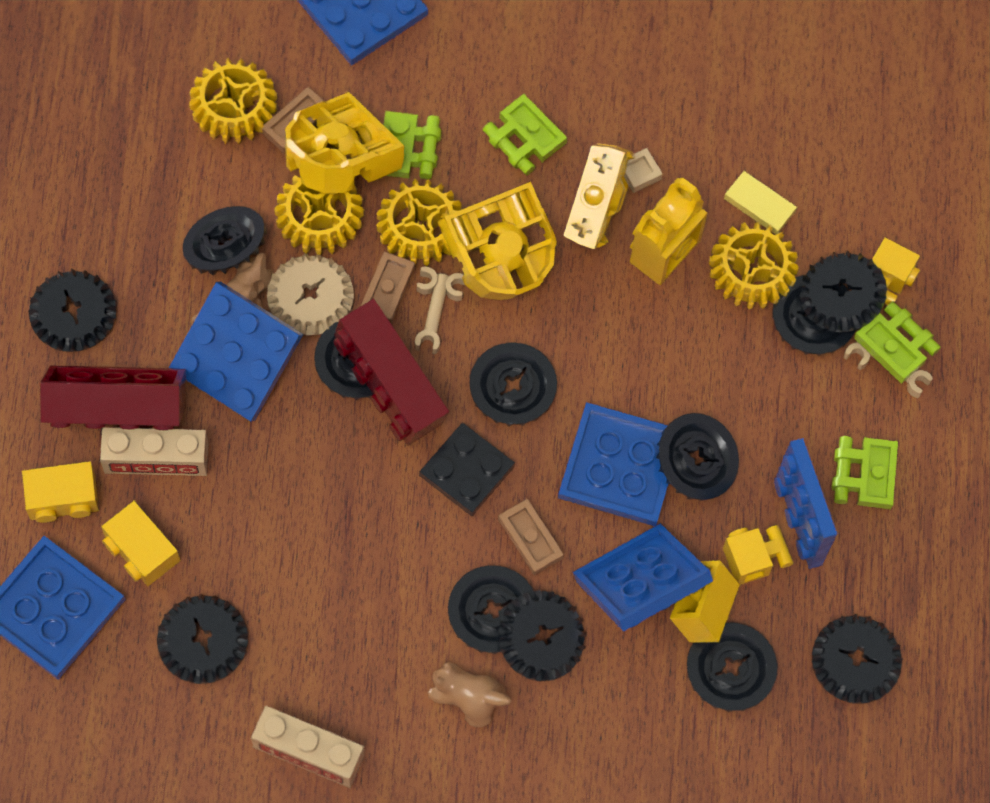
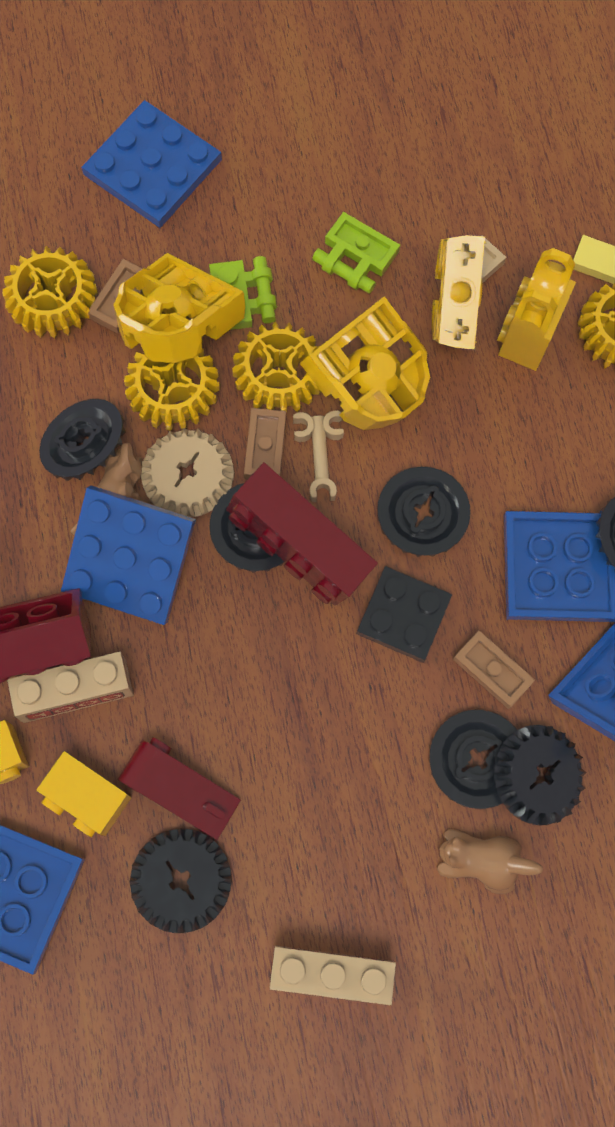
camera: 15 degrees left, 5 degrees up
(222, 561) = (178, 788): none -> dark red door

